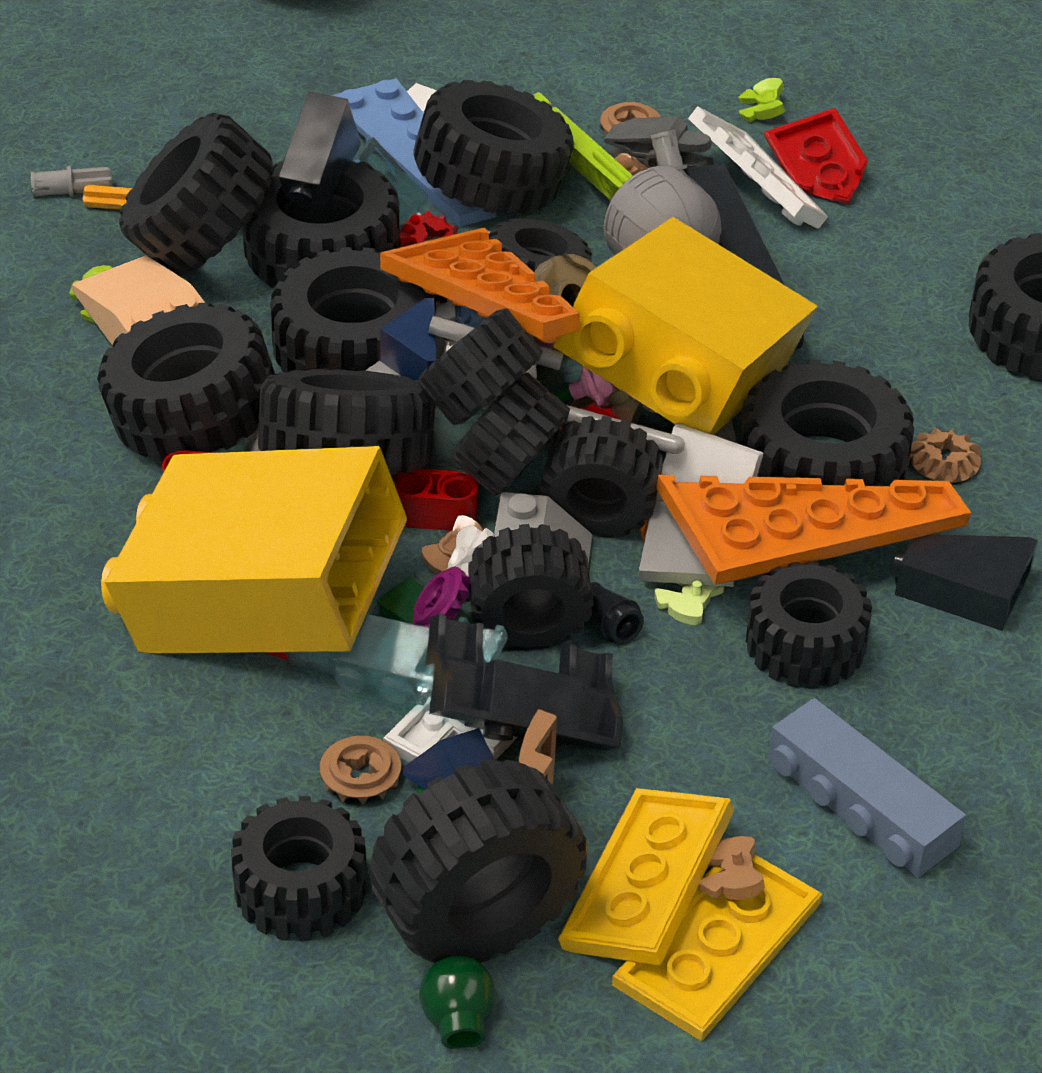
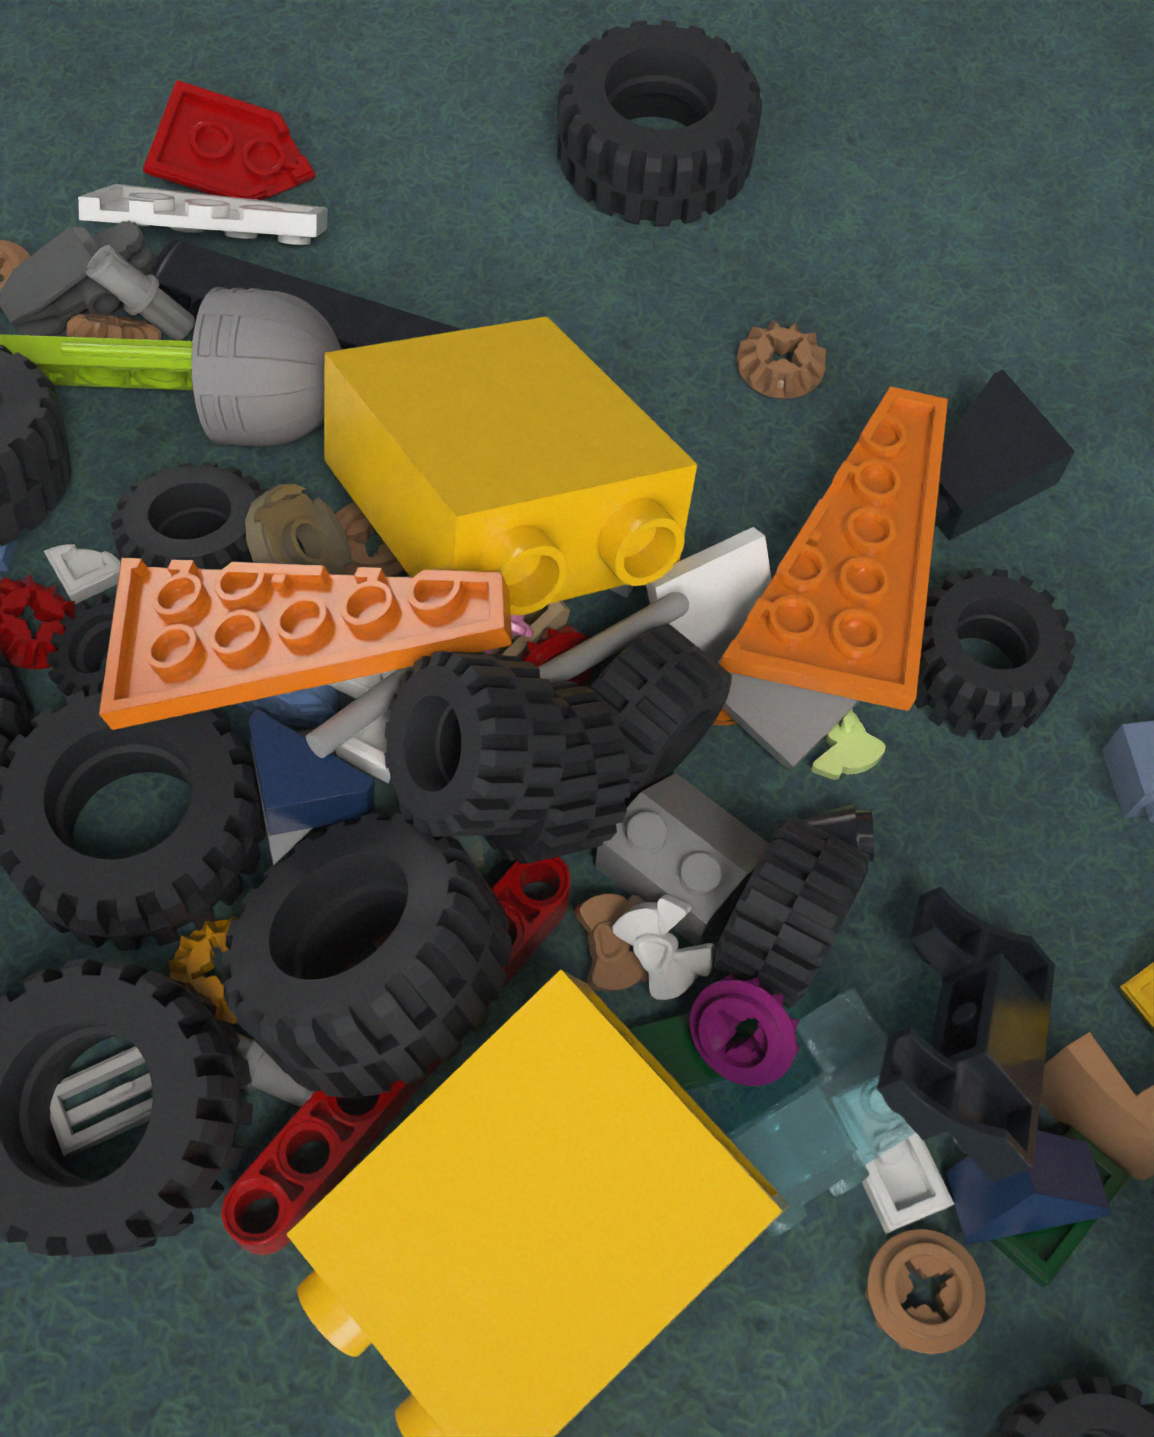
camera: 60 degrees left, 20 degrees up
(766, 95) = (67, 121): lime piece -> none
(834, 404) = (755, 398): black tyre -> none

